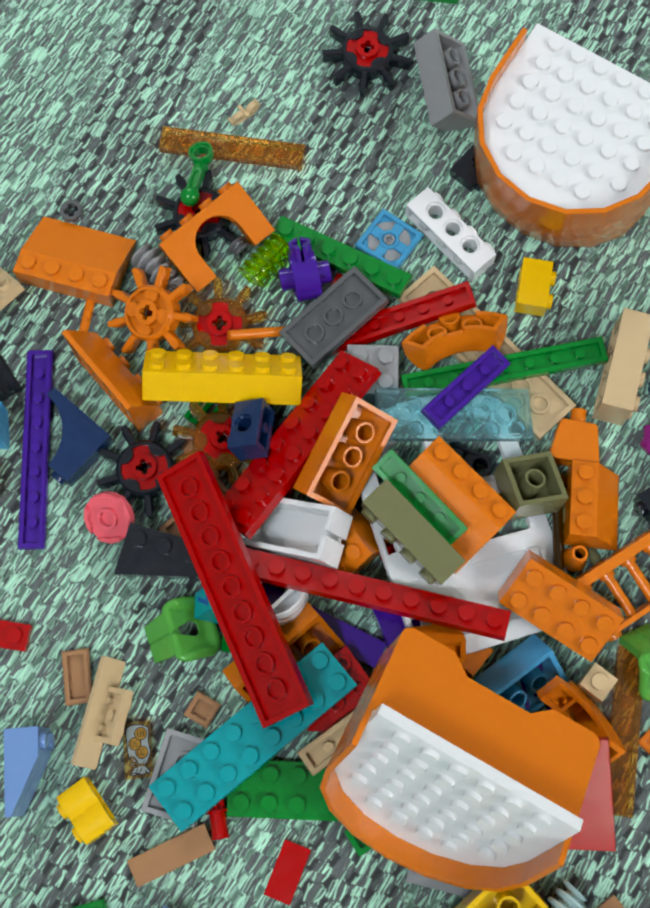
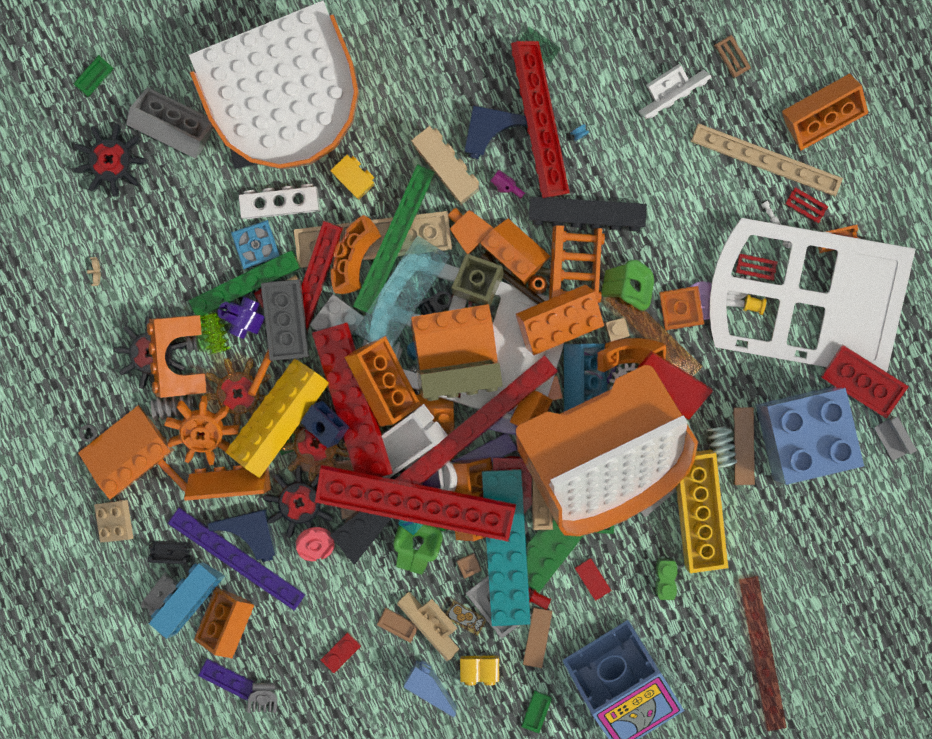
camera: 55 degrees left, 15 degrees up
(190, 194) = (136, 352): green piece -> none
(235, 148) = (116, 298): clear orange plate -> none
(420, 496) = (441, 357): green plate -> none
(465, 387) = (391, 275): dark purple tile -> none

